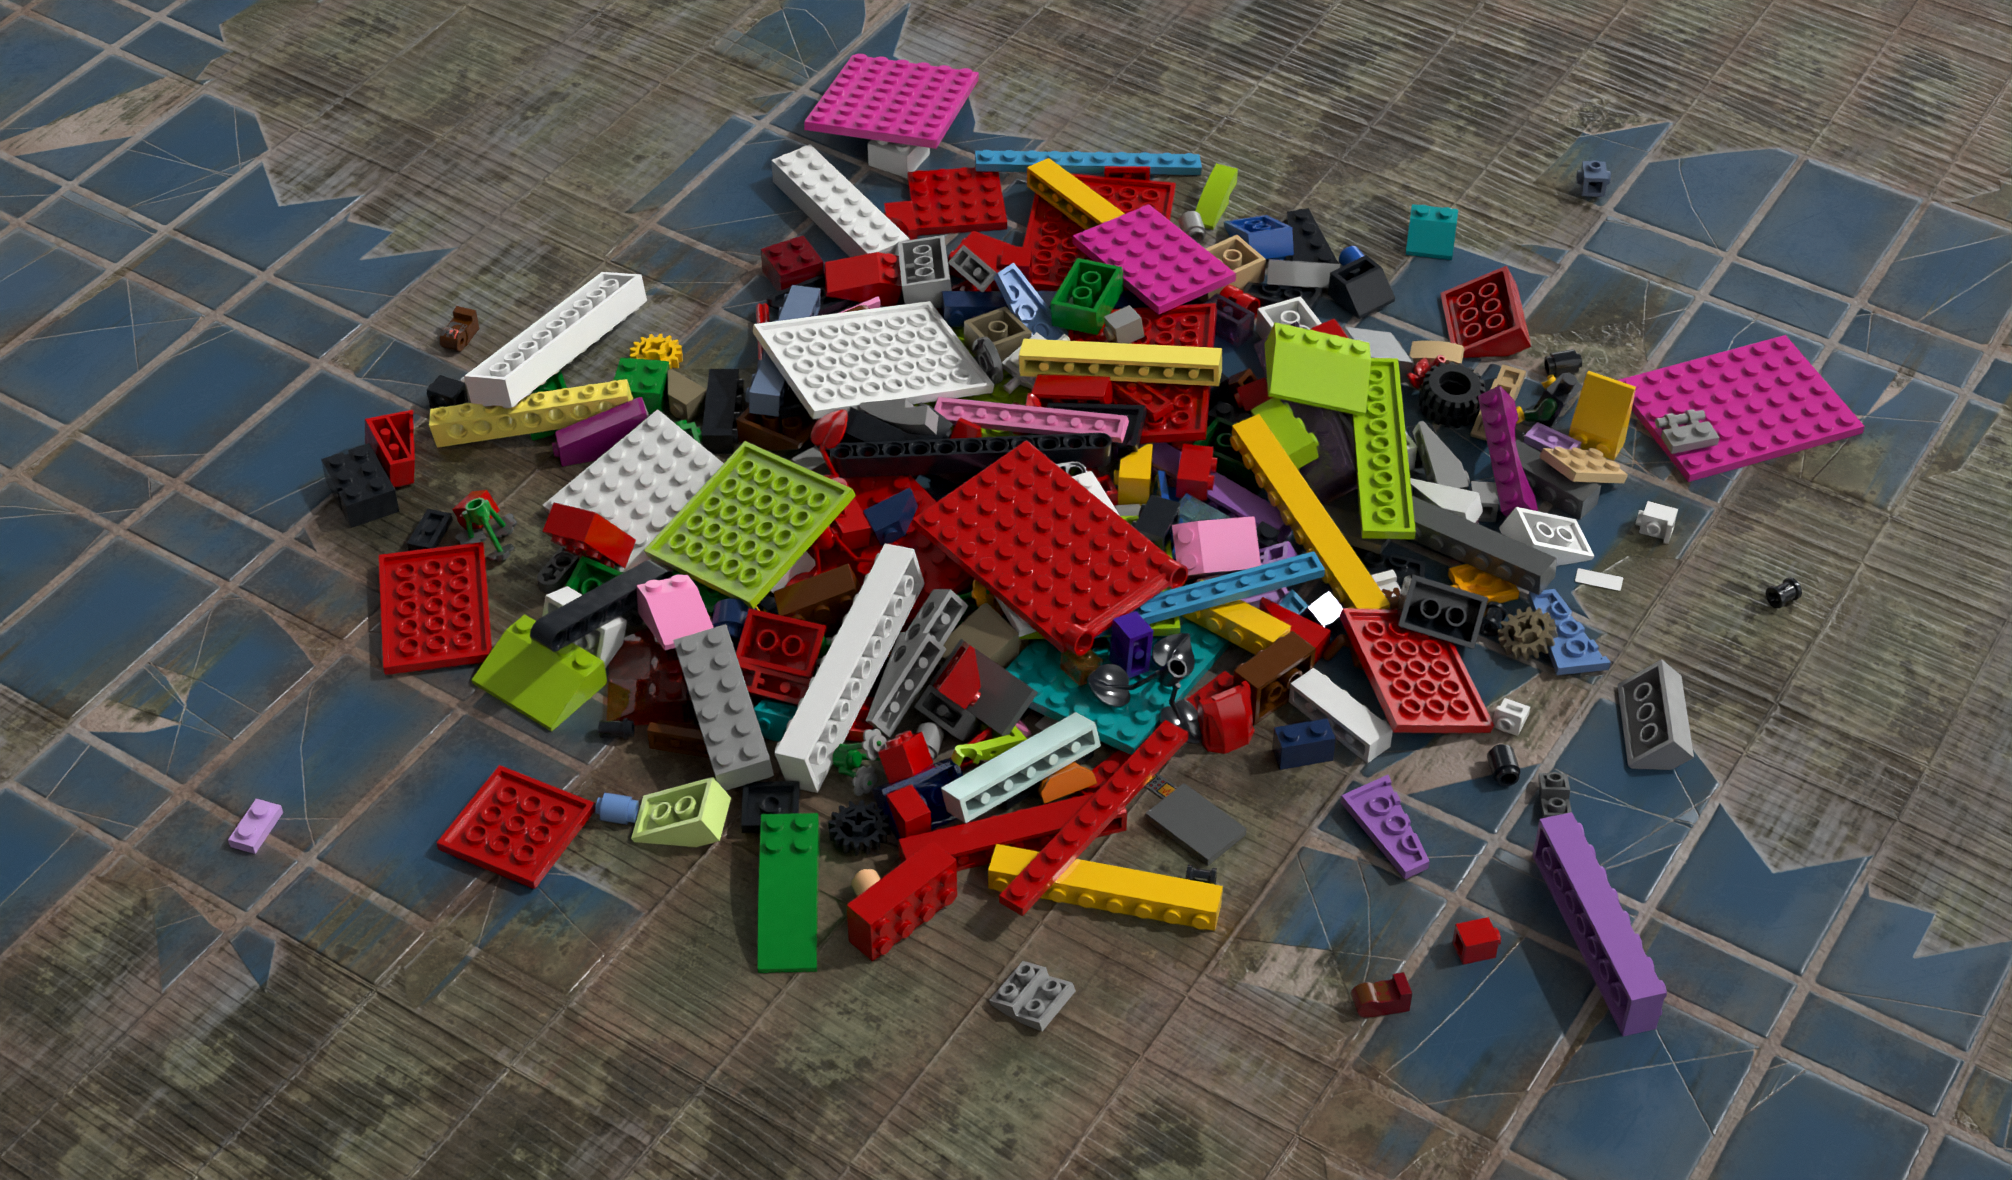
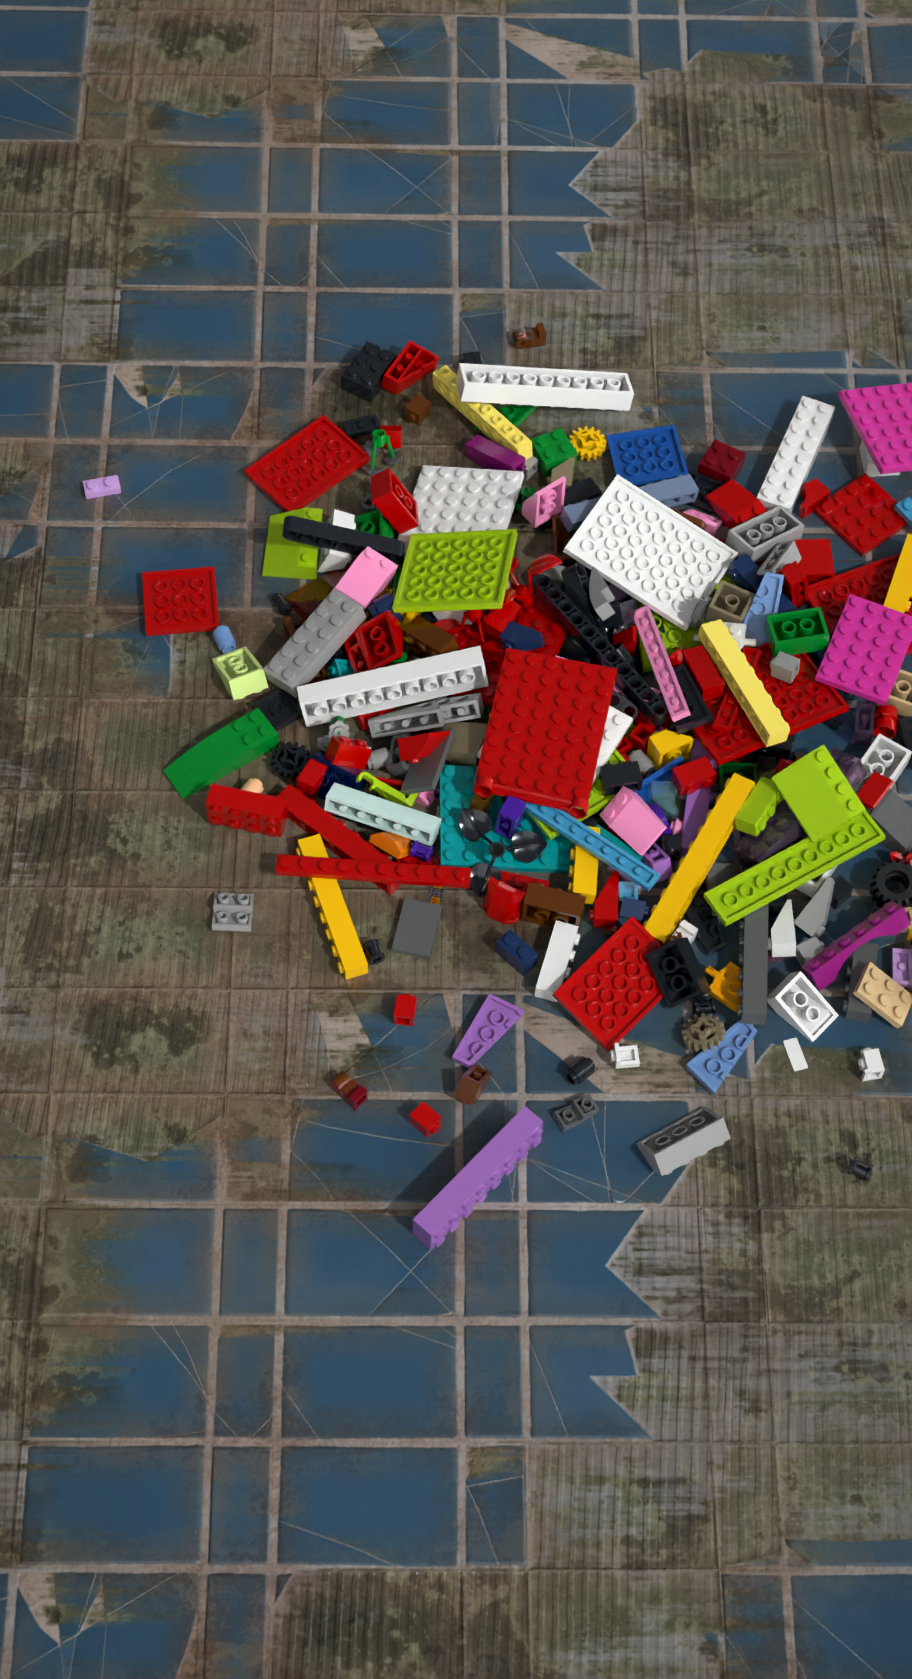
camera: 55 degrees right, 15 degrees up
(460, 470) = (417, 409): none -> reddish brown brick
(718, 409) = (545, 503): none -> bright pink slope
(723, 313) = (647, 455): none -> blue plate
(1101, 757) = (421, 851): none -> dark purple bush
(1307, 886) = (405, 1009): none -> red brick
(1458, 872) = (472, 1084): none -> reddish brown slope

